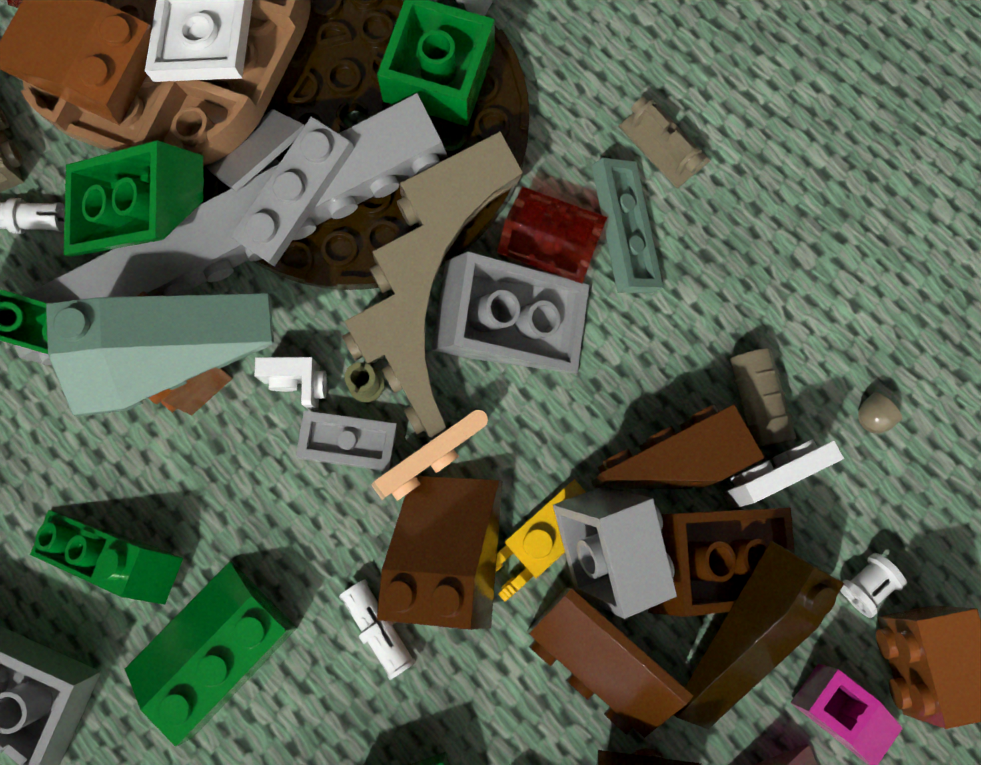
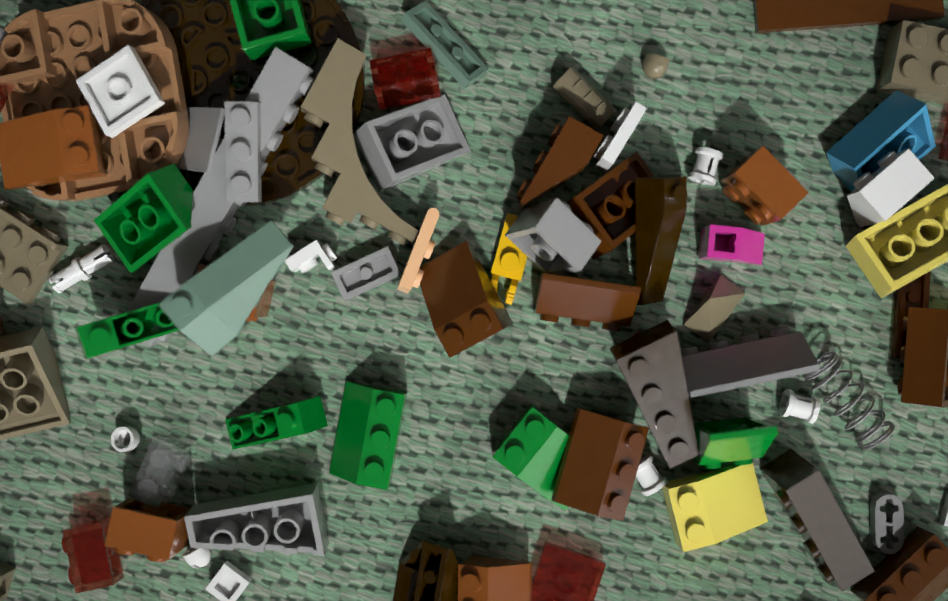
camera: 30 degrees left, 10 degrees up
(368, 392) = (360, 239): olive pin -> none
(379, 634) = (454, 365): white pin -> none

